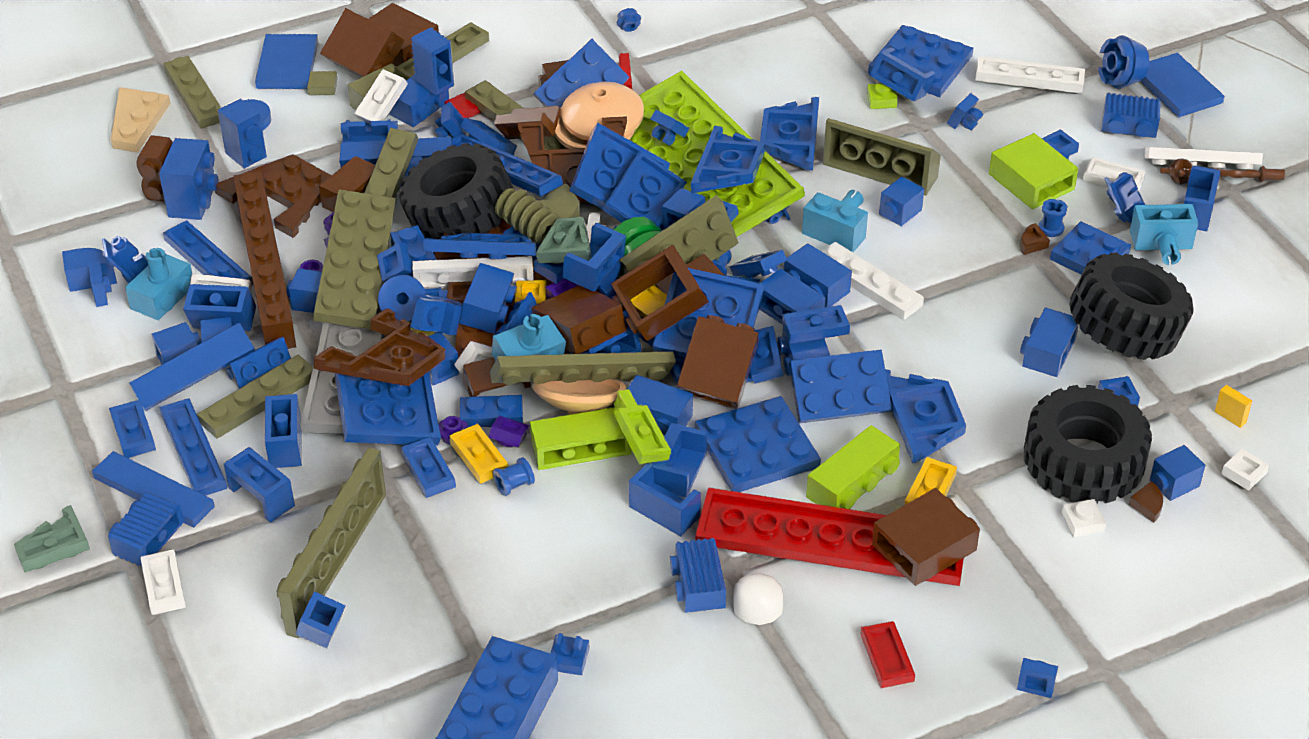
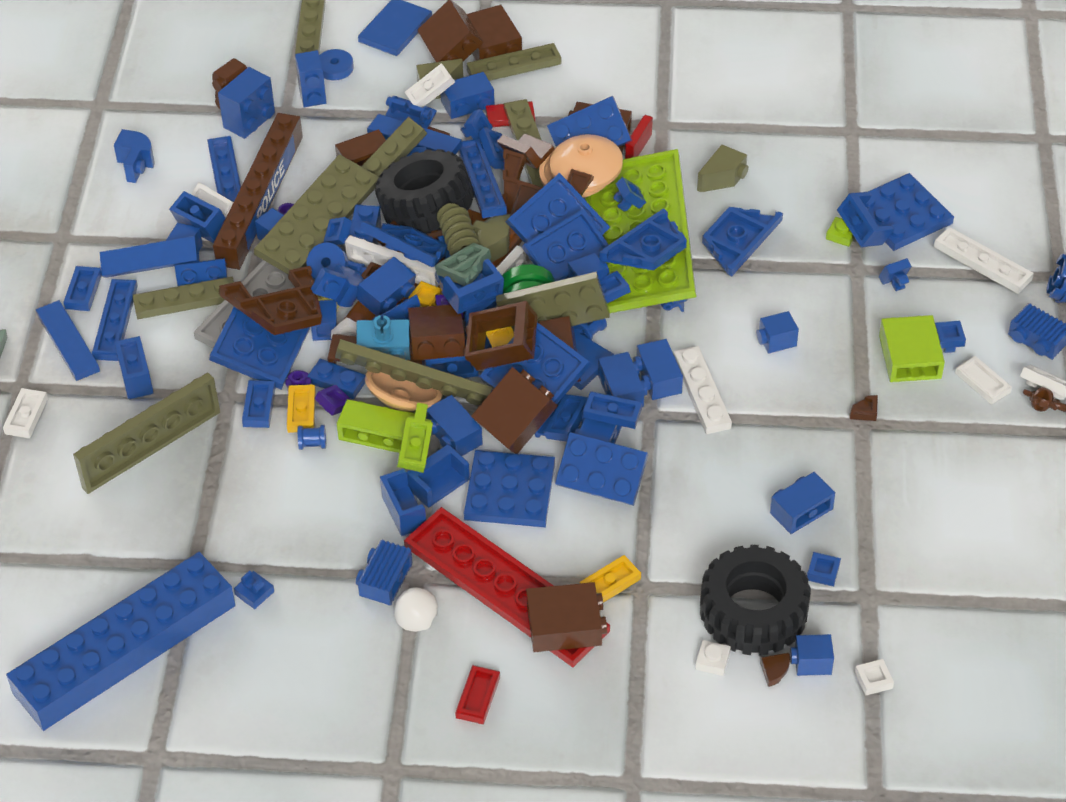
camera: 30 degrees right, 5 degrees up
(120, 255) = (155, 151): blue hinge -> none
(136, 117) = (254, 35): tan wing -> none
(145, 528) = (40, 367): blue brick -> none
(159, 284) = (170, 181): dark azure brick -> none
(174, 341) = (151, 231): blue brick -> none
(283, 430) = (175, 333): blue brick -> none
(290, 183) = (322, 131): reddish brown wing -> none
(320, 619) = (100, 487): blue brick -> none
(322, 83) = (408, 55): olive tile -> none
(433, 61) = (481, 70): blue brick -> none
(628, 19) = (683, 85): blue plate -> none
(731, 78) = (722, 170): none -> olive slope
(758, 264) = (616, 341): blue plate -> none
(836, 220) = (711, 329): dark azure brick -> none
(854, 469) = (561, 540): lime brick -> none
(878, 155) = (789, 286): olive slope -> none
(925, 413) = (654, 518): blue wing -> none
(1037, 677) = (569, 763): blue plate -> none
(1053, 215) = (893, 400): blue bush -> none
(1083, 245) = (905, 439): blue plate -> none
(1124, 195) = (968, 404): blue hinge -> none
(1131, 306) = (866, 519): black tyre -> none
(1164, 229) = (975, 445): dark azure brick -> none
(1202, 193) = (1037, 432): blue panel -> none
(1233, 406) = (908, 620): yellow tile -> none

